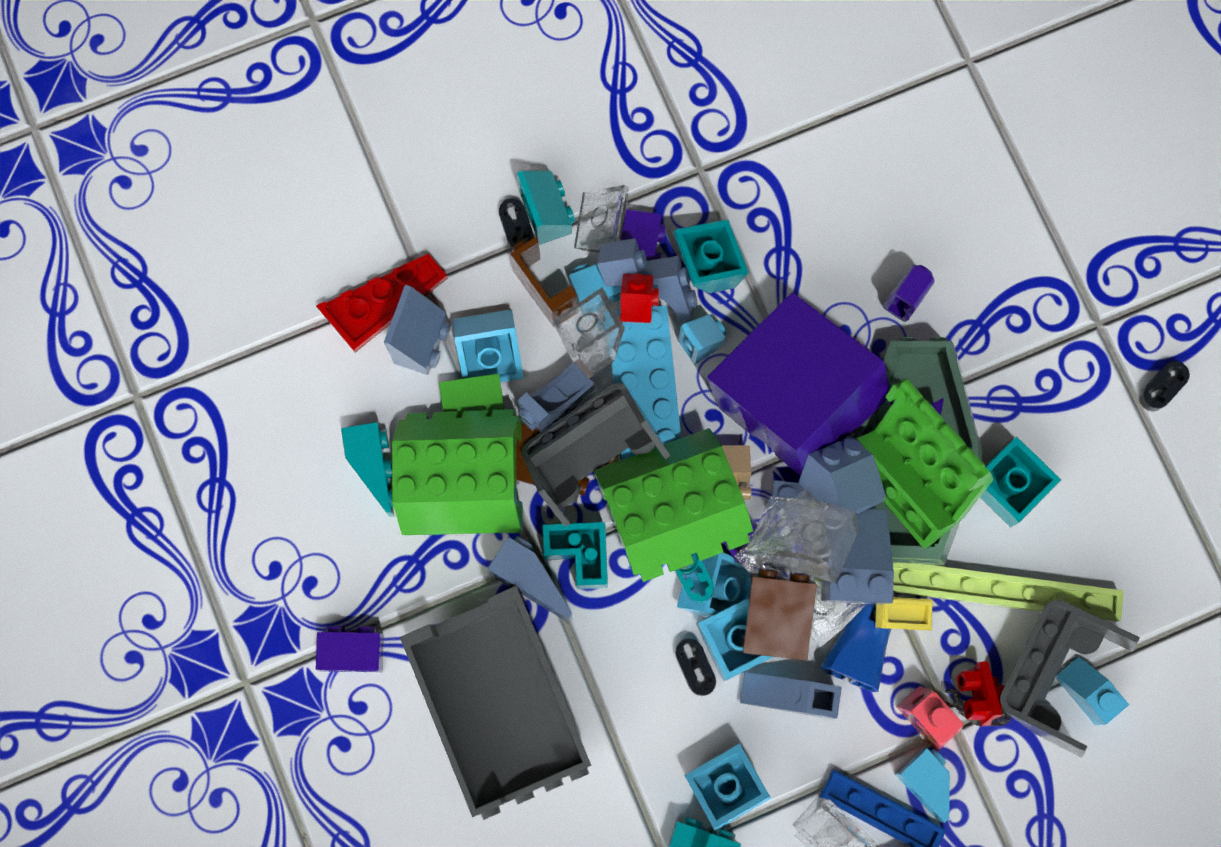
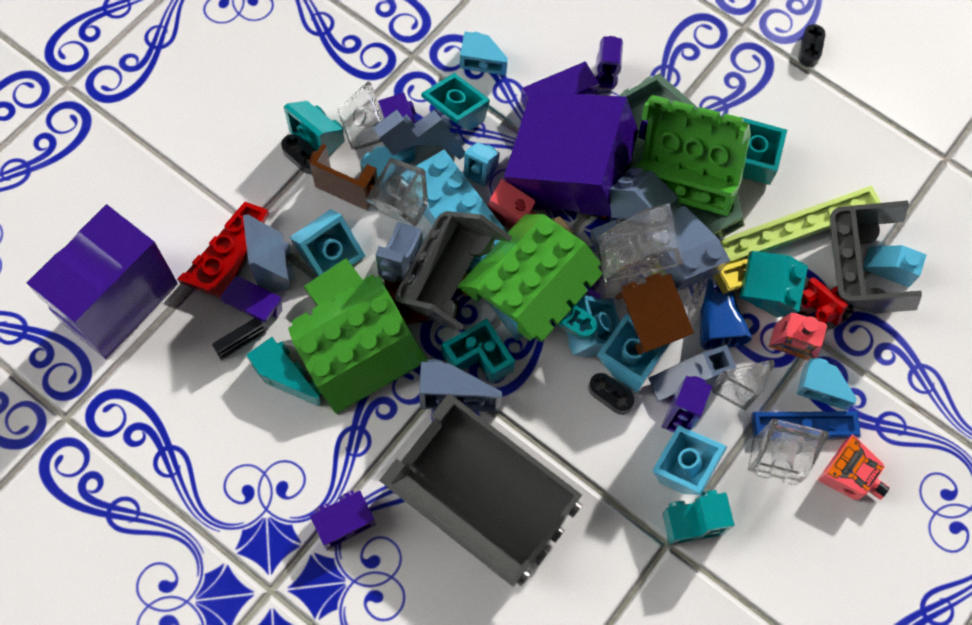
camera: 30 degrees left, 10 degrees down
(233, 281) = (104, 281): none -> dark purple tile
(345, 403) = (238, 338): none -> black tile
(377, 370) = (252, 299): none -> dark purple panel
(638, 298) = (422, 148): red brick -> none
(699, 397) = (509, 204): none -> coral torso
(758, 729) = (687, 404): none -> dark purple brick
(774, 207) = (482, 54): none -> medium azure slope
(836, 738) = (742, 384): none -> clear slope
(842, 296) = (574, 80): none -> dark purple brick
(939, 643) = (774, 282): none -> teal slope

